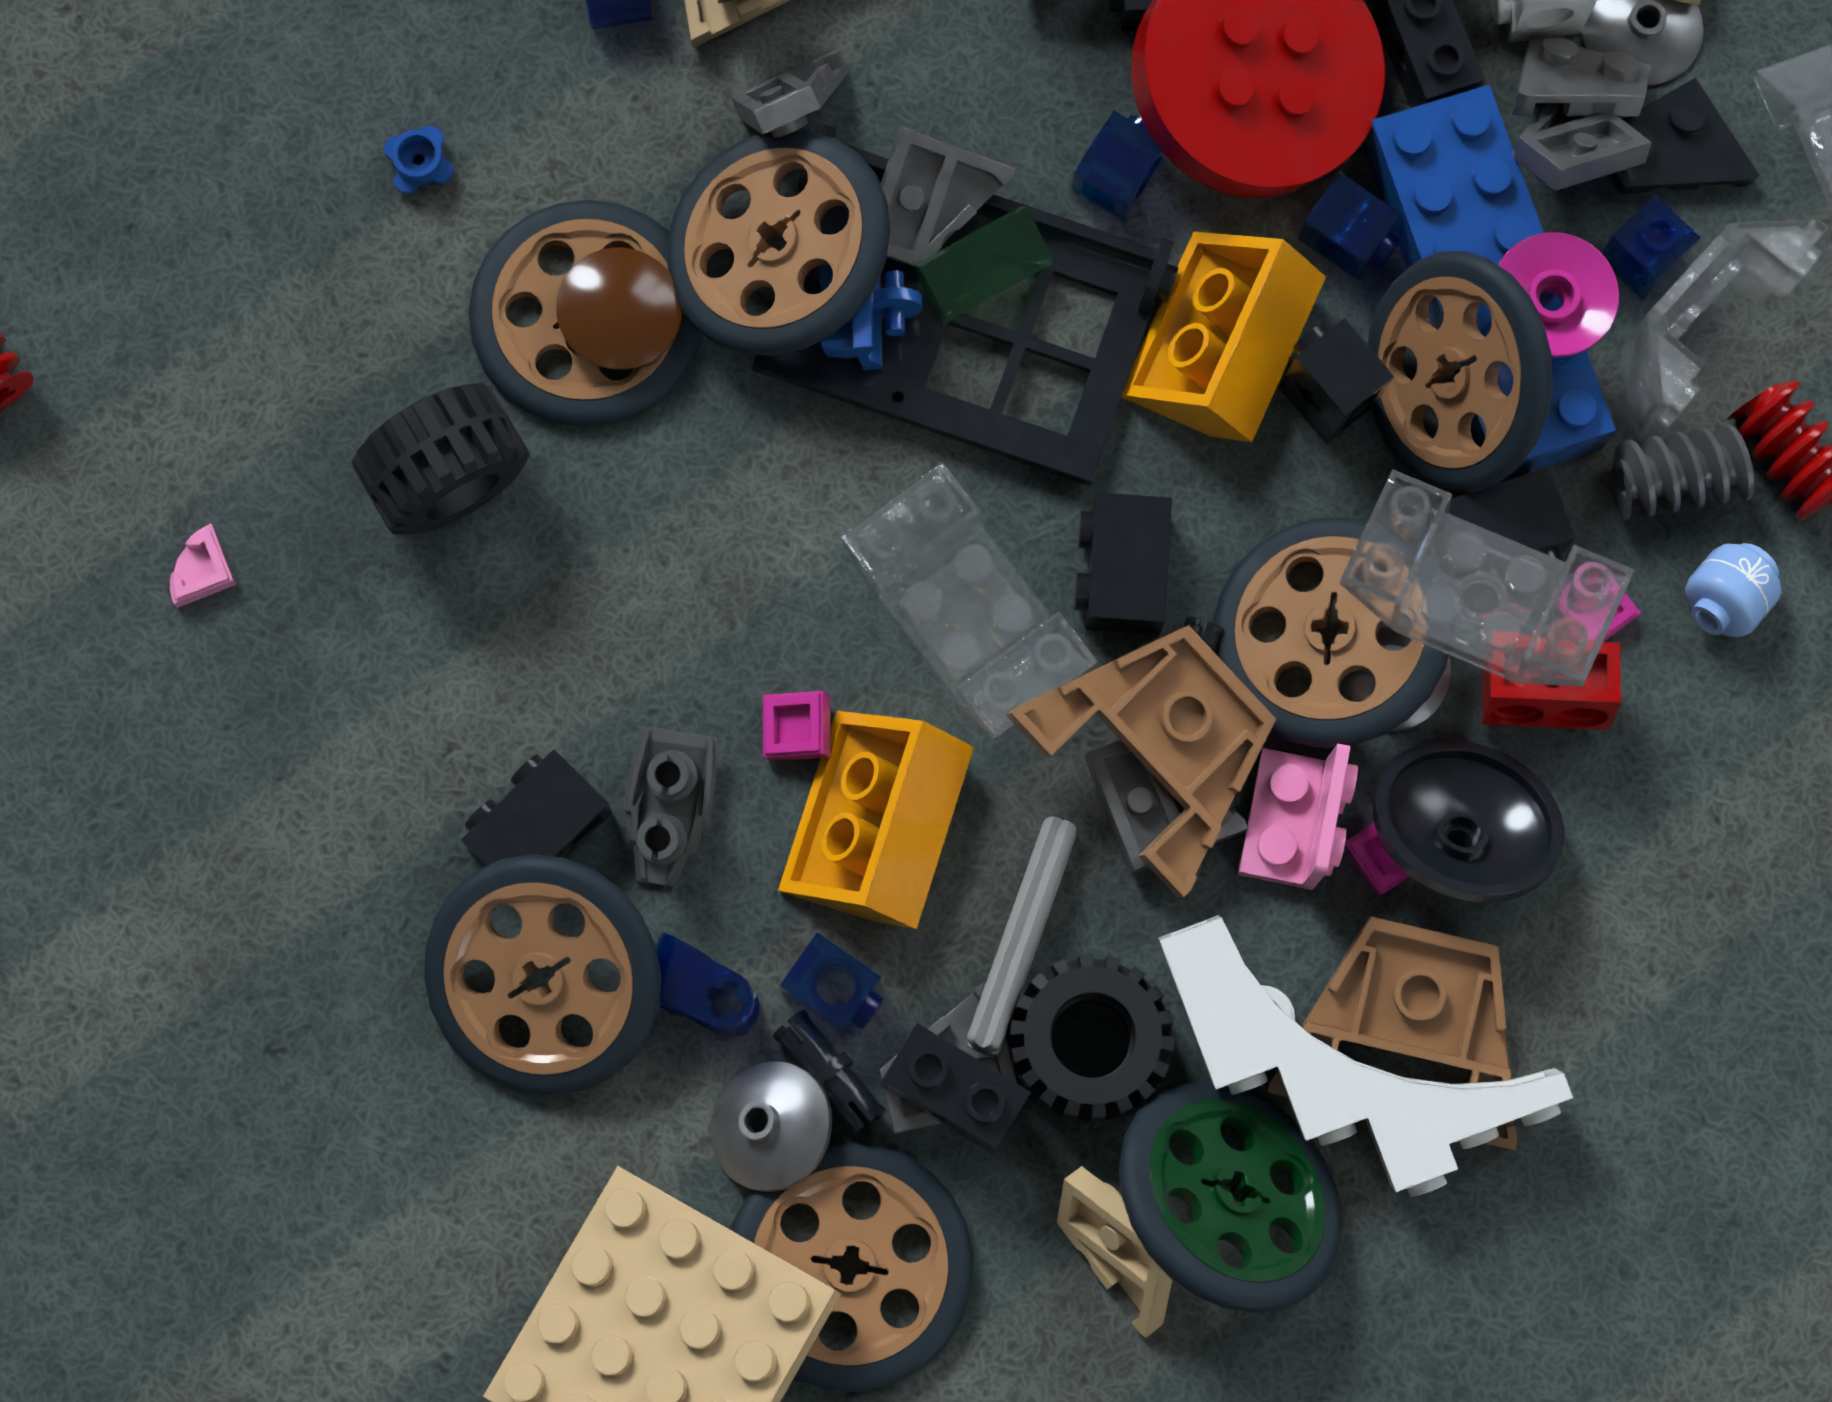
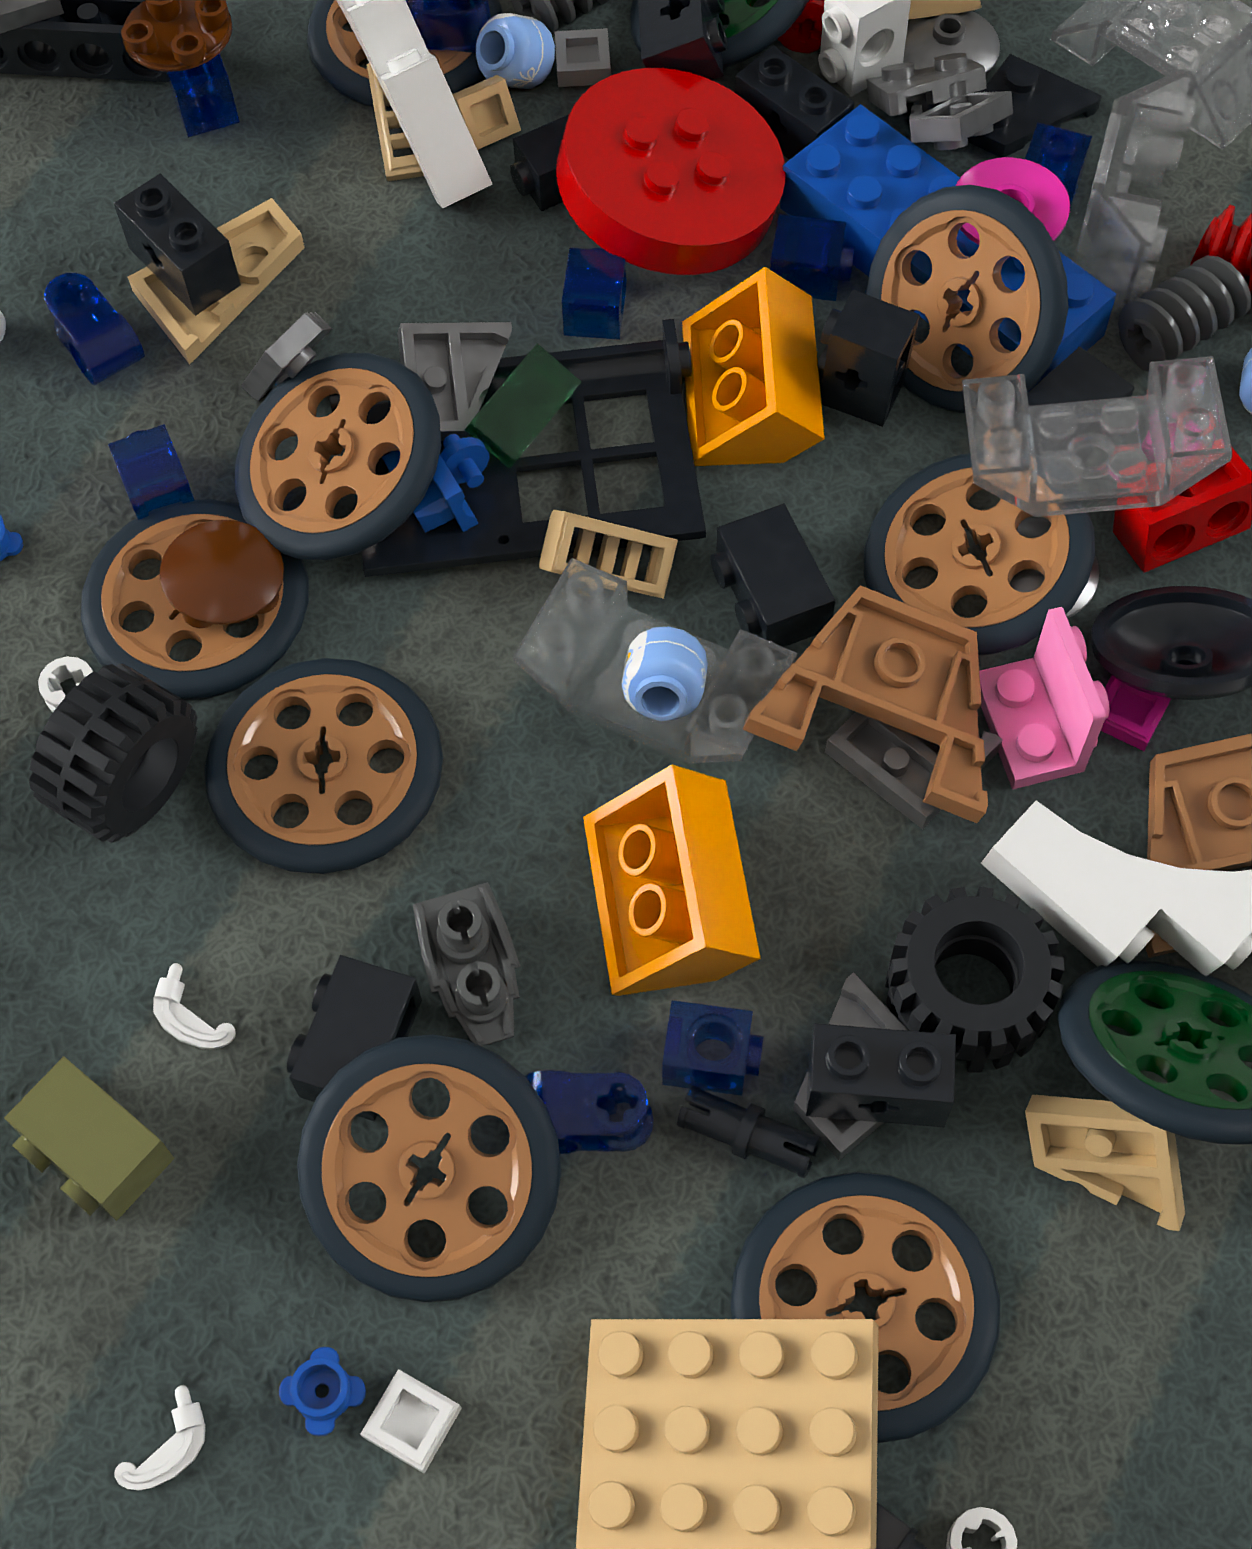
camera: 20 degrees left, 15 degrees down
(231, 1104) = (174, 1454): none -> white piece
(271, 805) = (87, 1138): none -> olive brick
(356, 1105) = (322, 1370): none -> blue plate
(396, 730) = (182, 1022): none -> white piece
(433, 1173) = (411, 1421): none -> white tile
(448, 342) = (57, 672): none -> white bush
(601, 161) = (150, 470): none -> clear blue brick
(678, 612) = (323, 842): none -> wedge
(795, 1130) = (748, 1211): flat silver dish -> none
(796, 726) = (554, 843): dark pink tile -> none
(957, 418) = (559, 538): none -> tan slope
(967, 622) = (664, 673): none -> light blue head
(1021, 936) = (859, 920): light grey axle -> none

